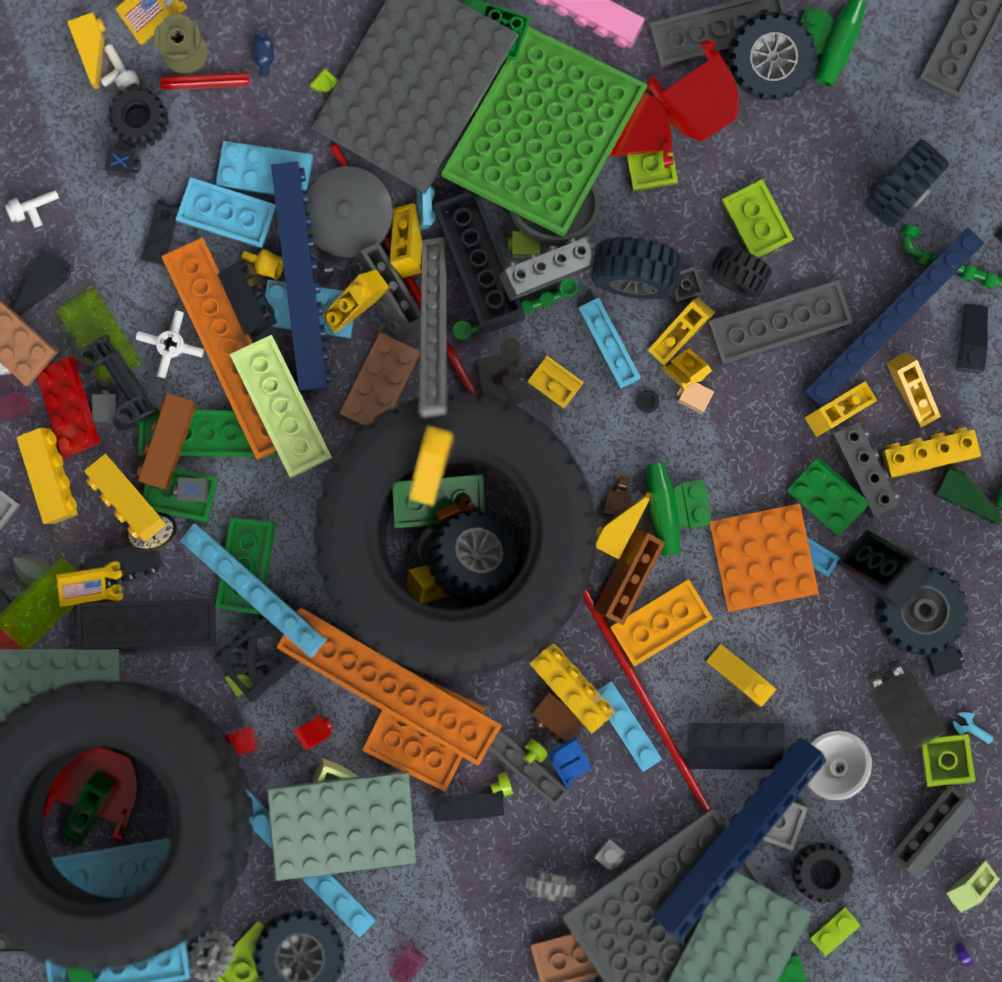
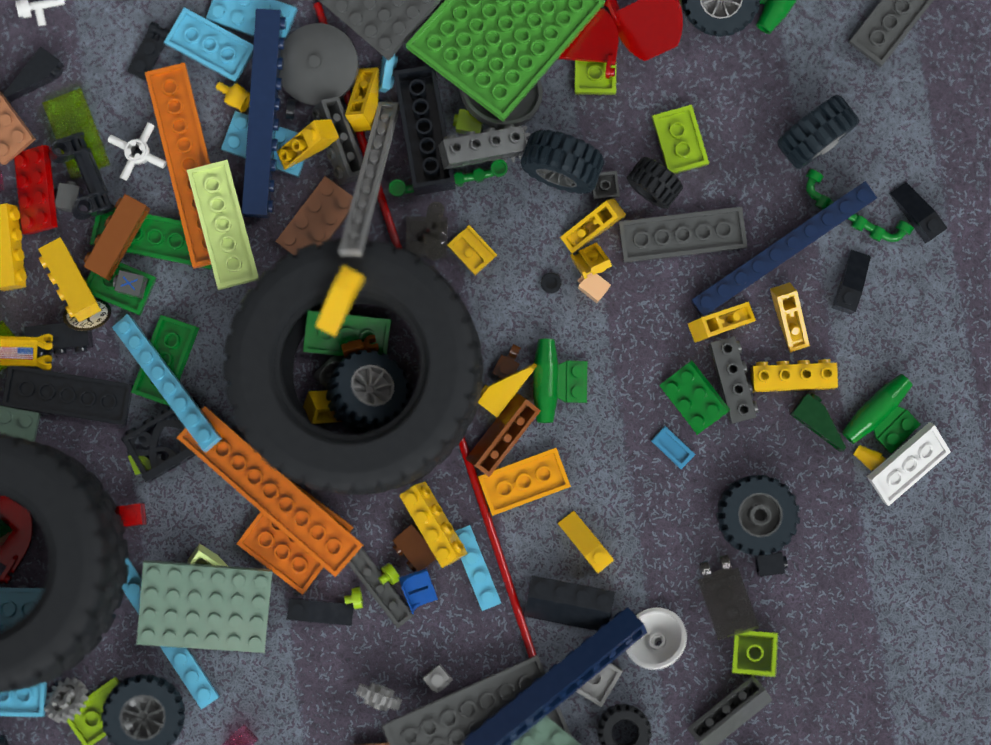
camera: 10 degrees right, 0 degrees up
(247, 298) = (213, 123): black brick -> none
(314, 732) = (196, 519): red slope -> none
(609, 343) = (526, 224): medium azure plate -> none
(764, 557) = (627, 441): orange plate -> none
(884, 569) = (730, 471): black brick -> none
(971, 727) = (782, 628): medium azure bar -> none

